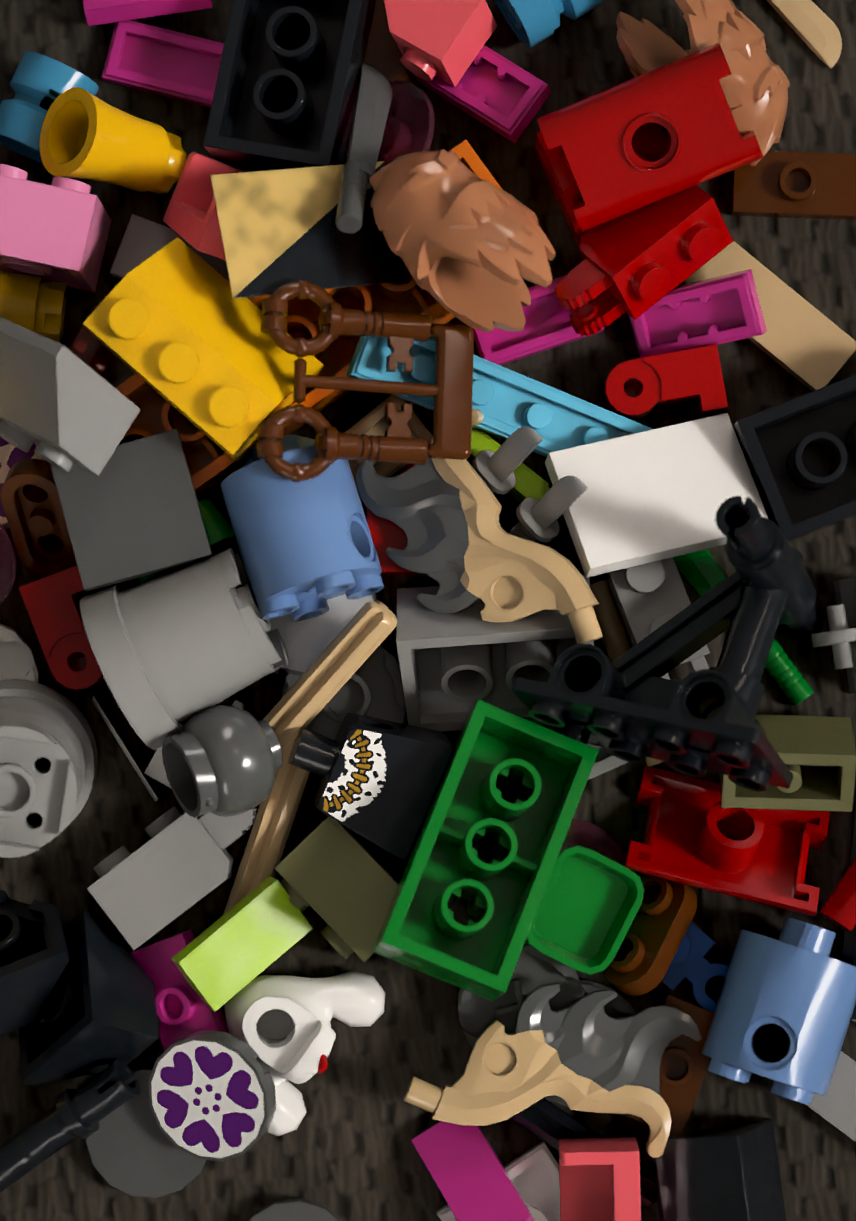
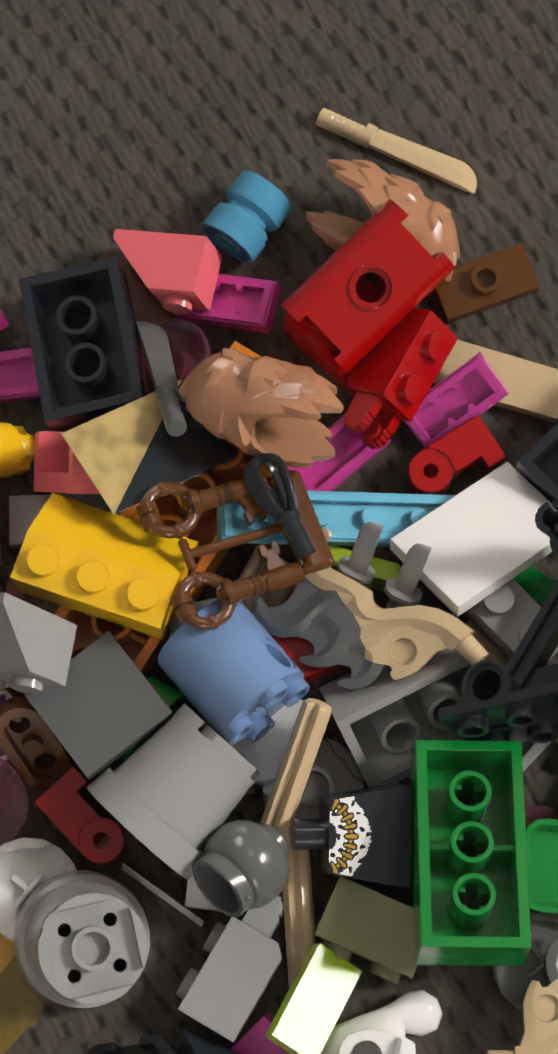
camera: 20 degrees left, 10 degrees down
(433, 386) = (289, 519): none -> black piece

